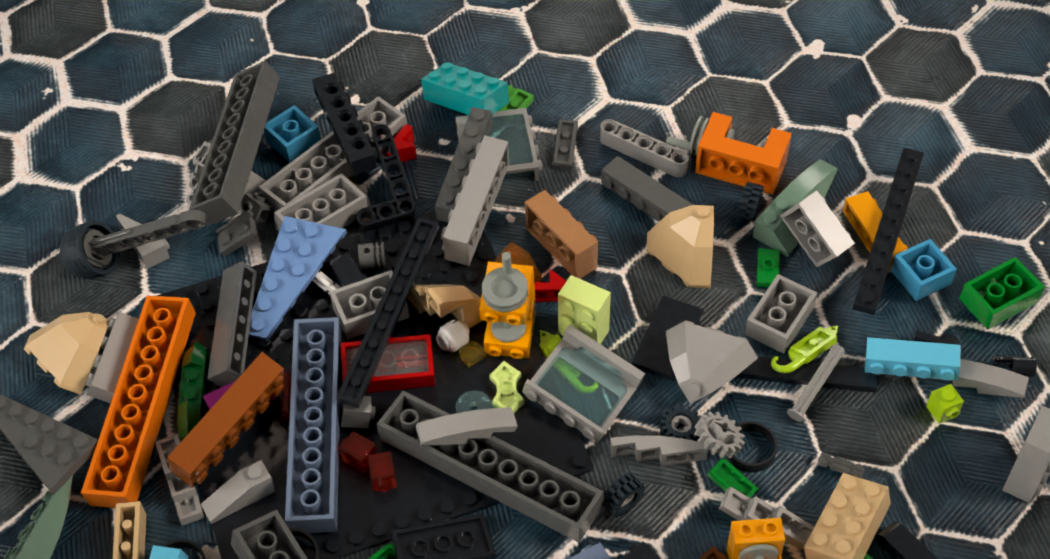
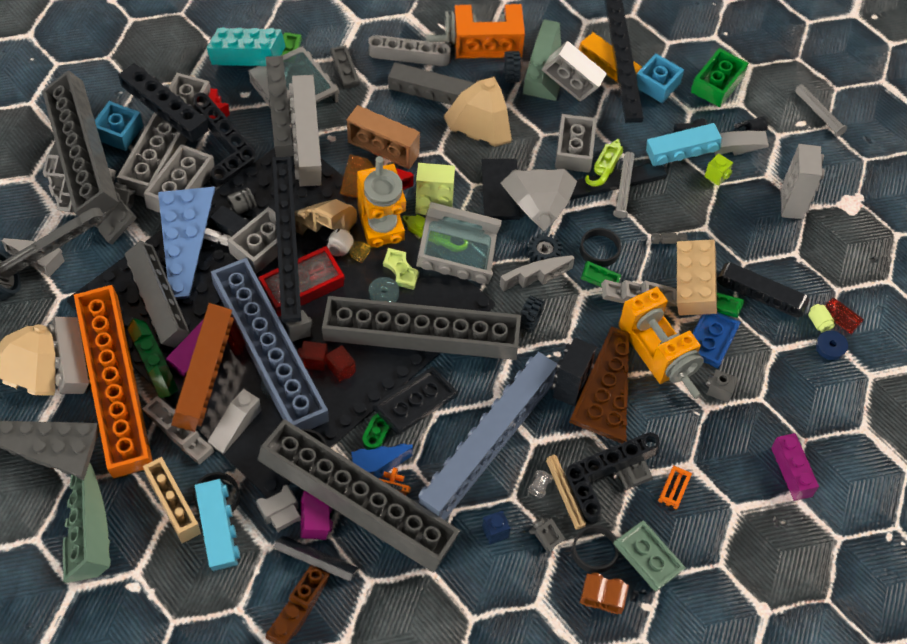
camera: 30 degrees left, 5 degrees up
(465, 425) = (395, 303): light grey slope -> none
(719, 434) = (579, 245): light grey gear -> none
(767, 266) = (546, 113): green plate -> none

